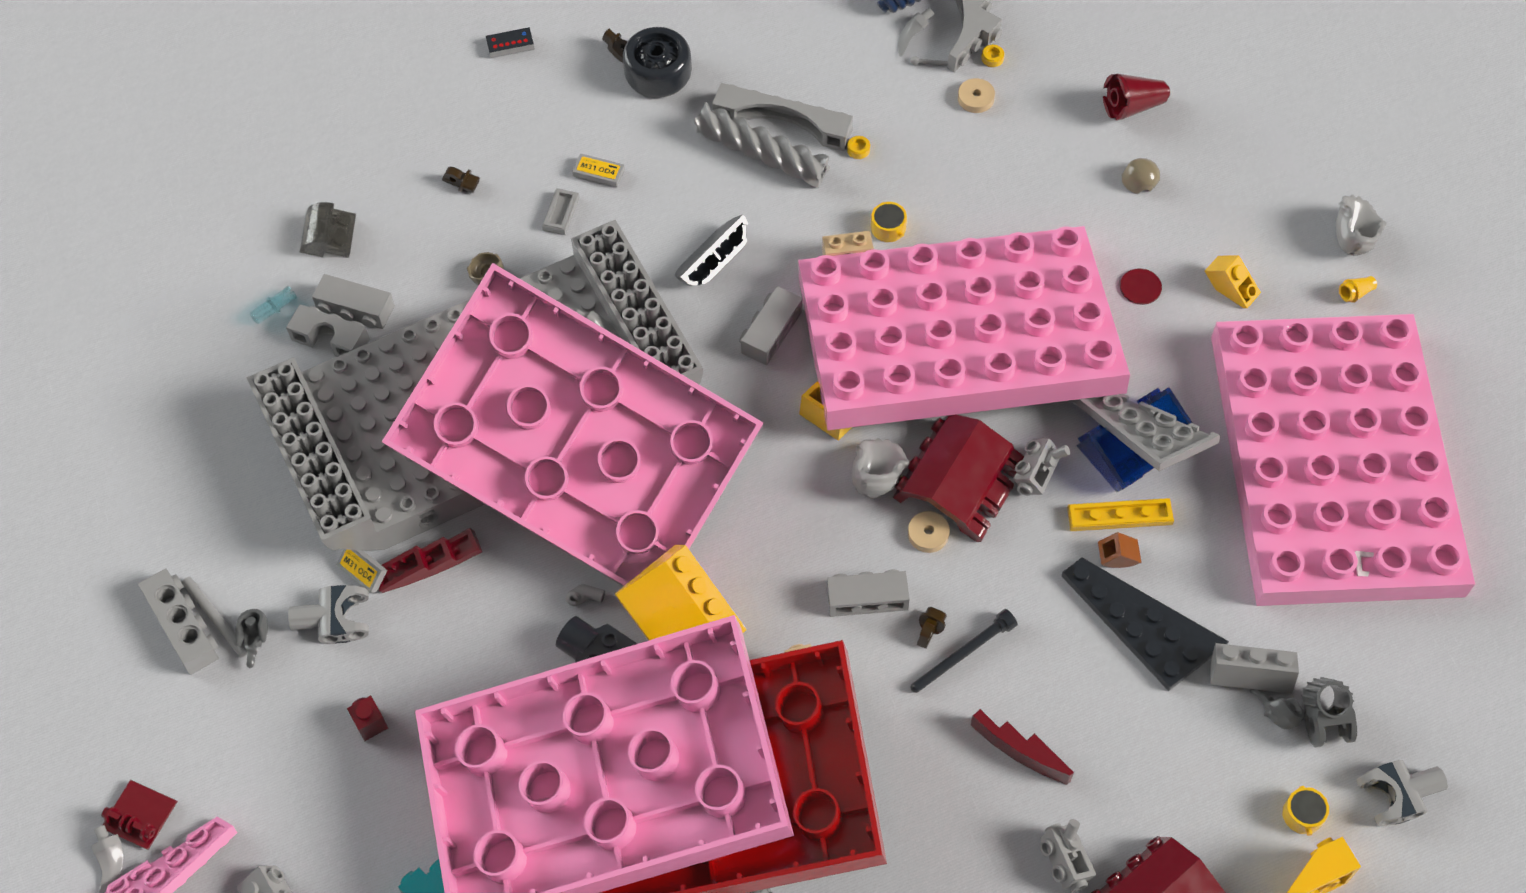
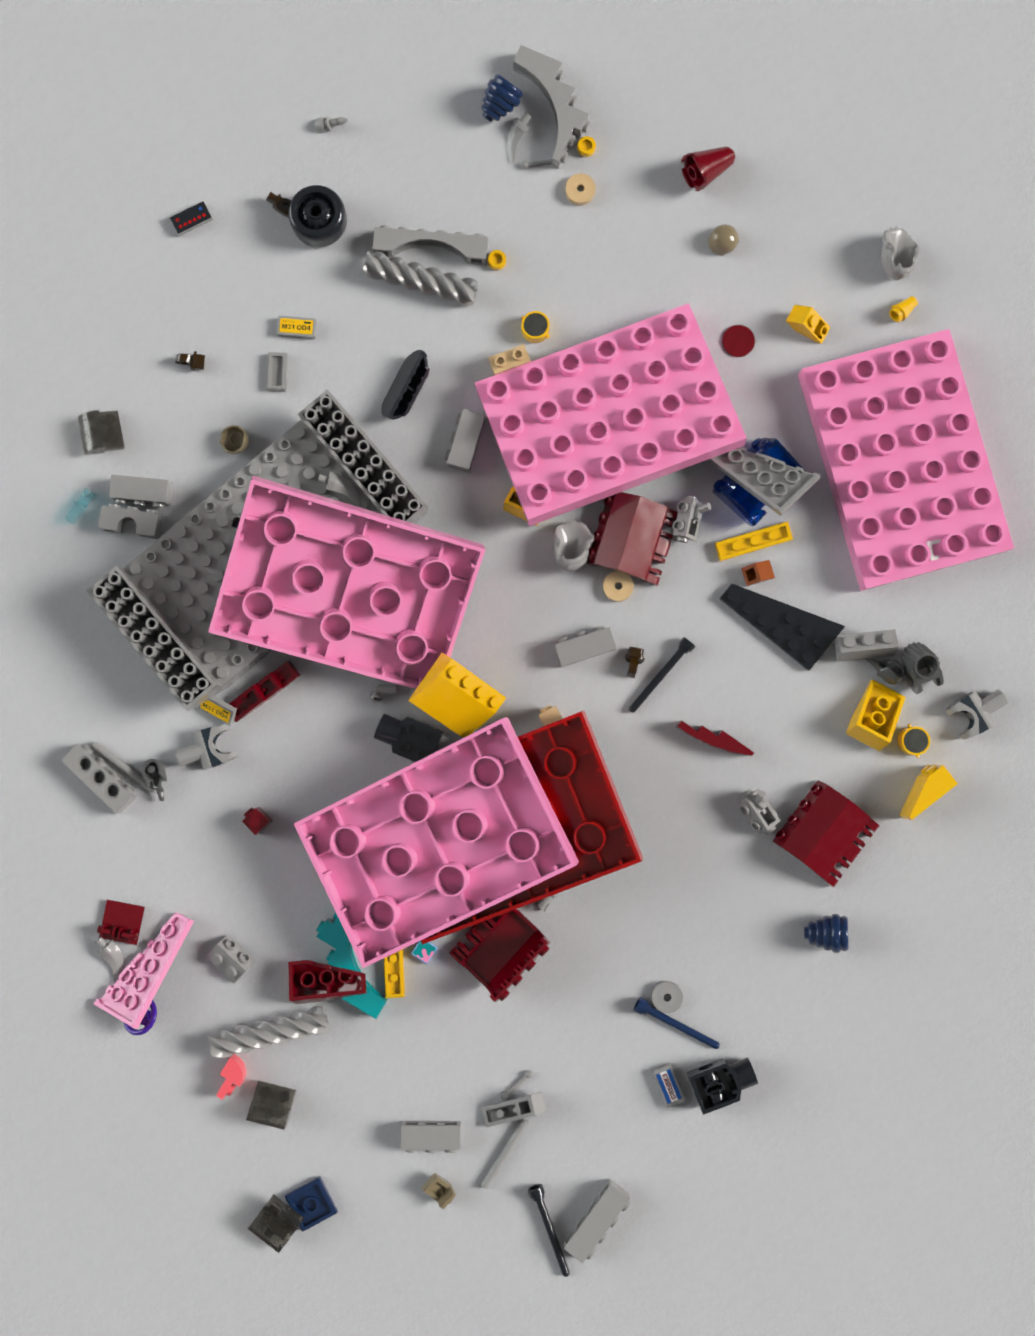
camera: 10 degrees left, 25 degrees up
(1255, 766) = (876, 716): none -> yellow slope

